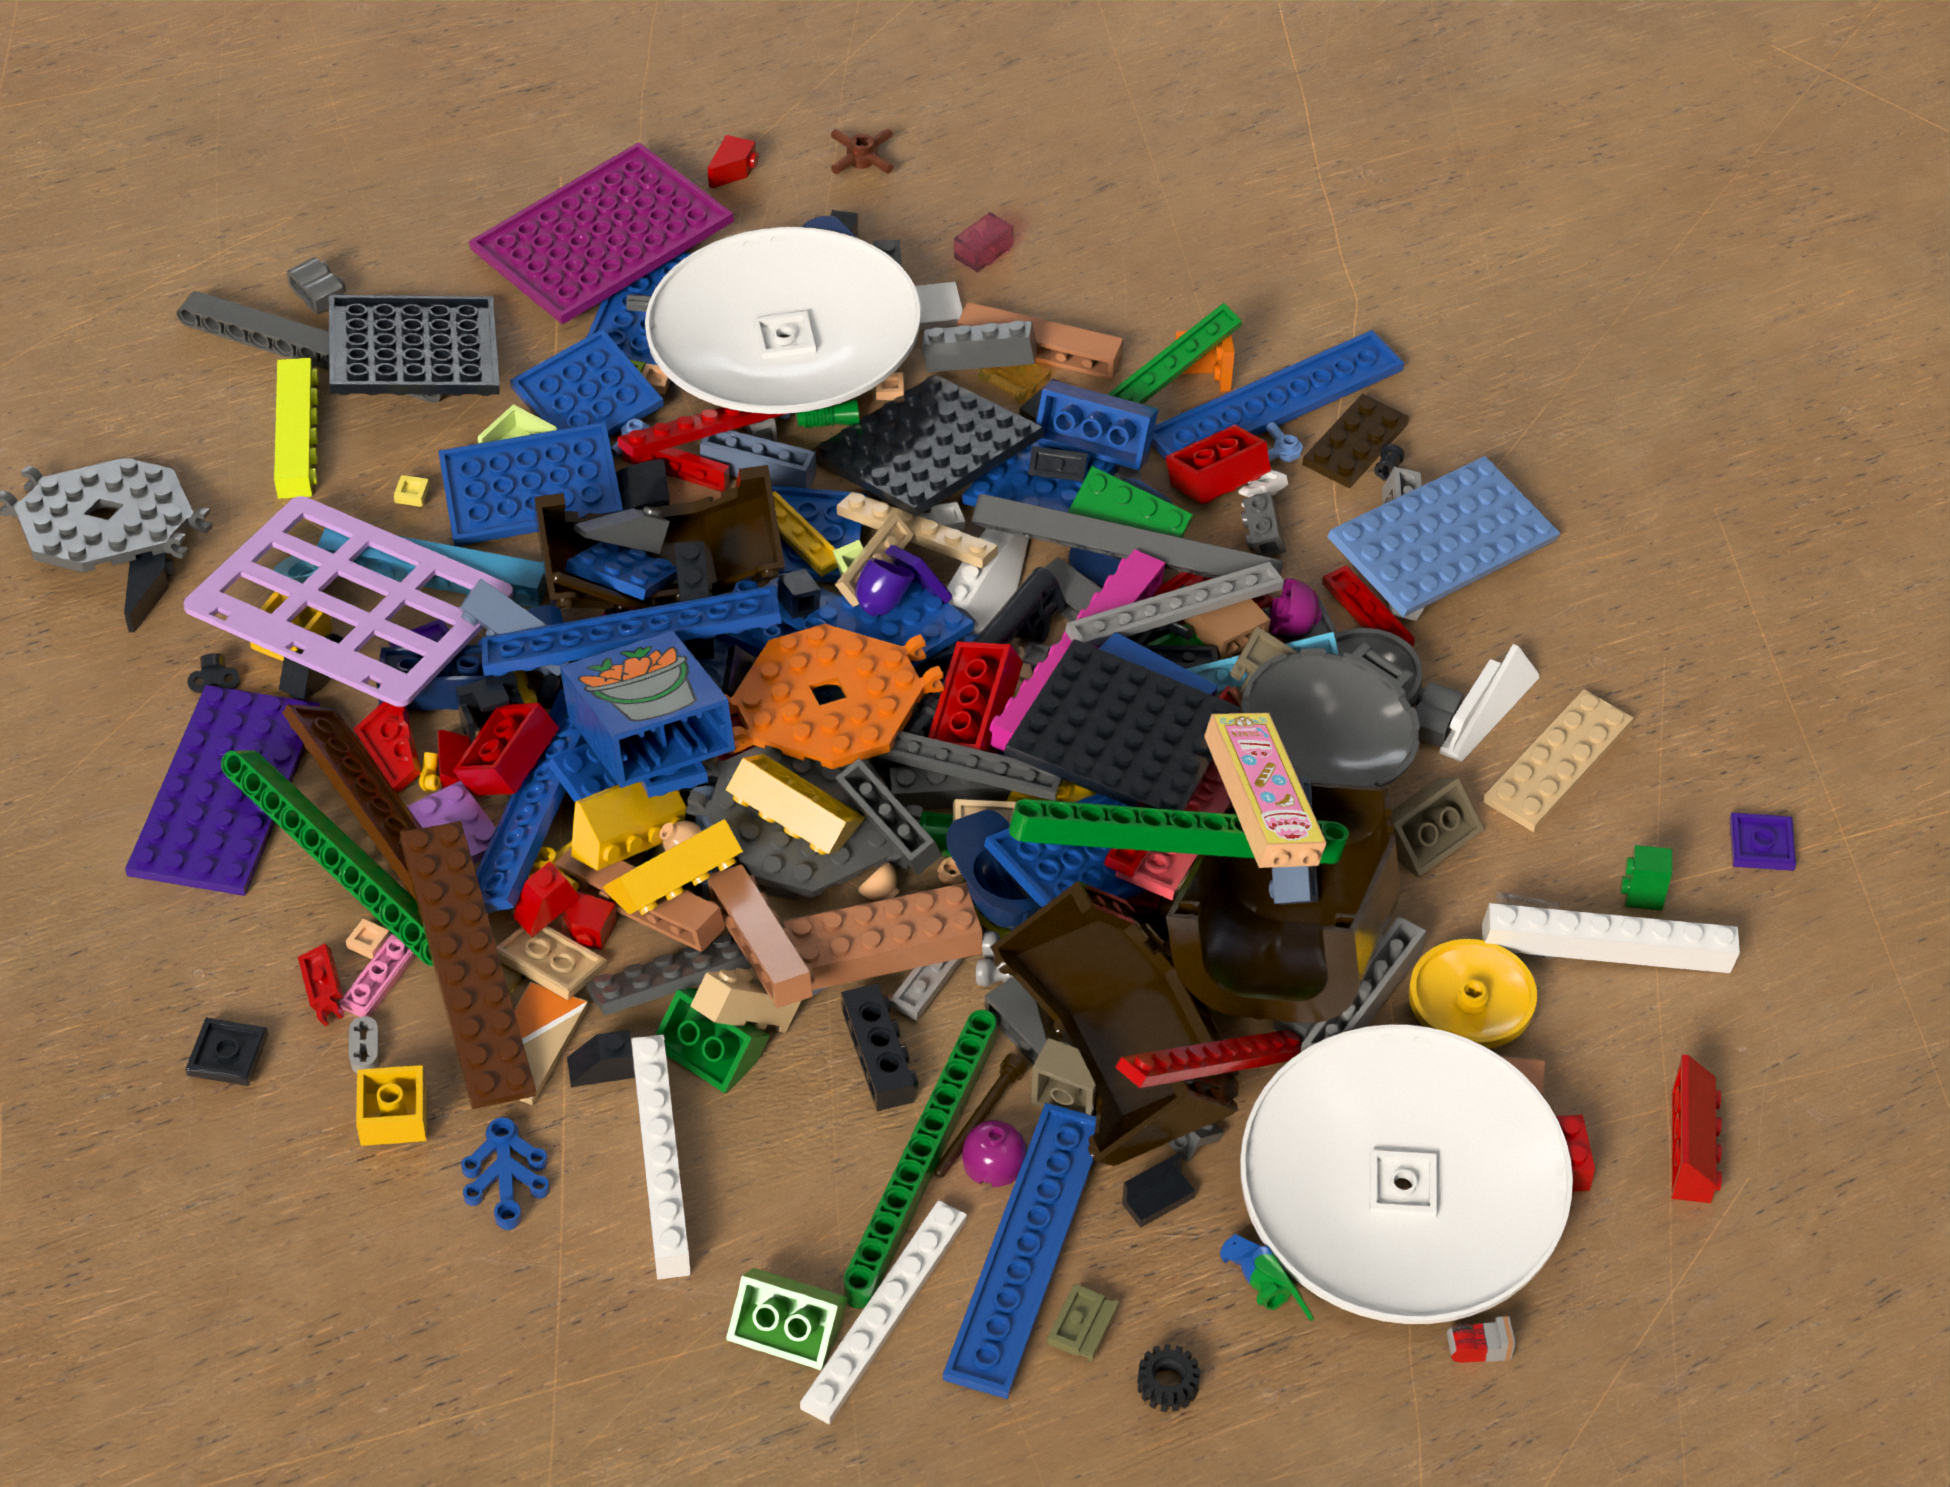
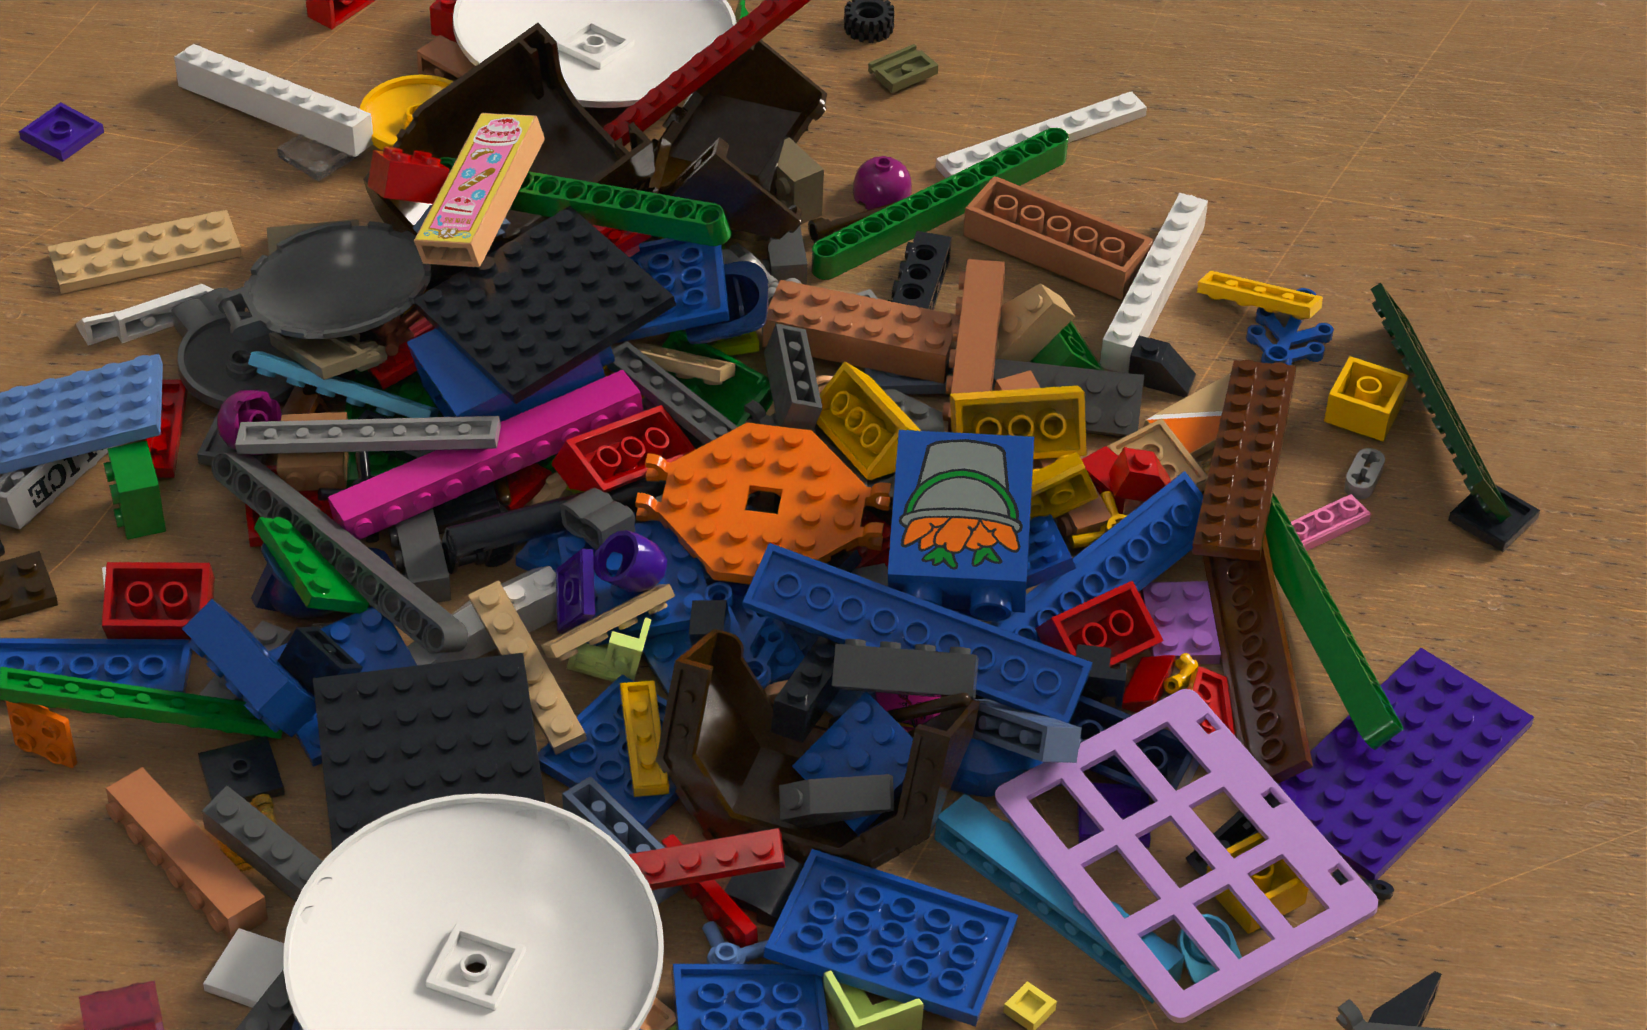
camera: 150 degrees left, 5 degrees down
(321, 982) = (1381, 531): red plate -> none
(321, 1120) = (1438, 401): none -> dark green plate
(367, 938) = (1322, 551): light nougat plate -> none
(550, 1184) = (1259, 294): none -> yellow plate
(619, 596) = (904, 670): none -> dark grey brick
(780, 1153) = (1056, 237): none -> nougat brick
(786, 1318) = (1119, 152): bright green slope -> none
(942, 620) = (596, 517): none -> dark grey brick
(1023, 1254) = (917, 116): blue plate -> none
(1264, 525) = (177, 533): dark grey brick -> none
(1286, 446) = (63, 611): medium blue piece -> none
(1309, 530) = (135, 490): none -> green slope
(1339, 779) = (406, 176): none -> red brick
(1647, 877) = (195, 119): green brick -> none

